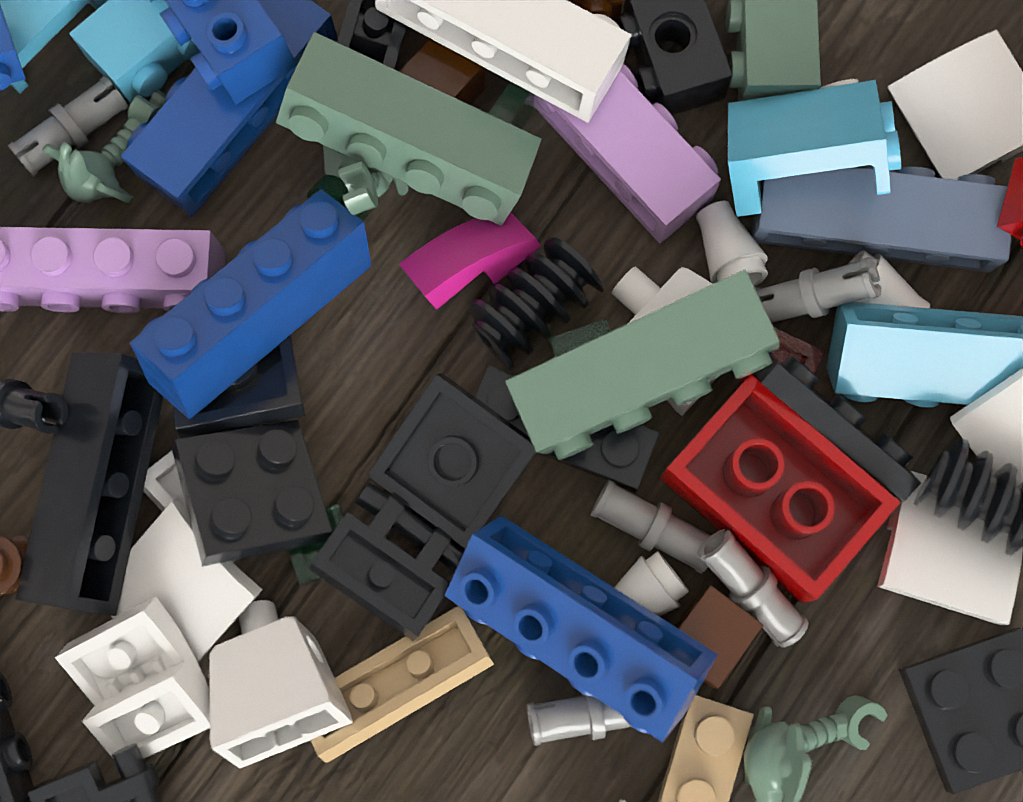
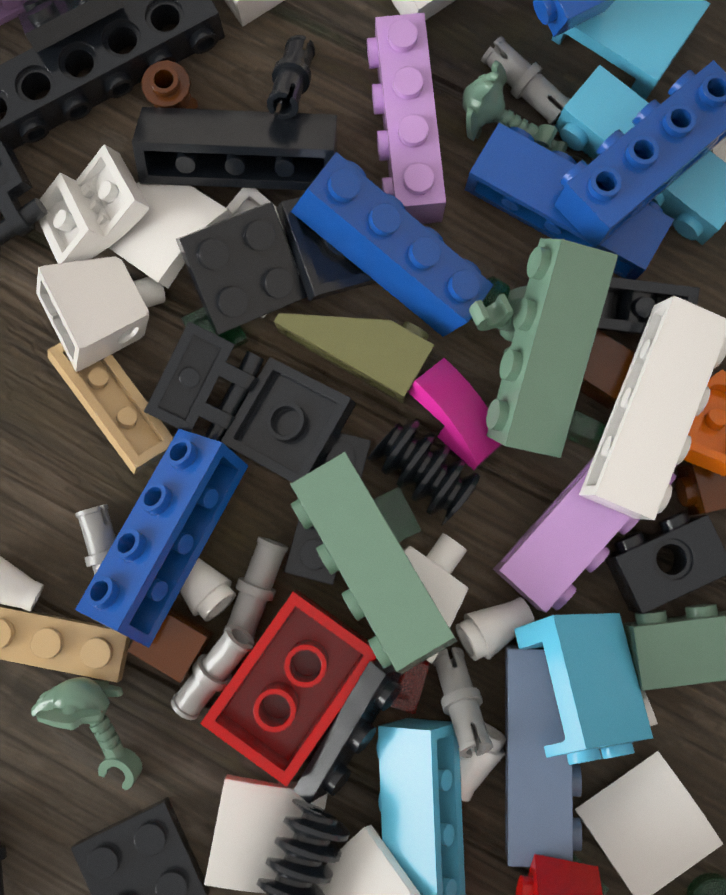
camera: 80 degrees right, 5 degrees up
(377, 350) = (369, 349): none -> olive slope

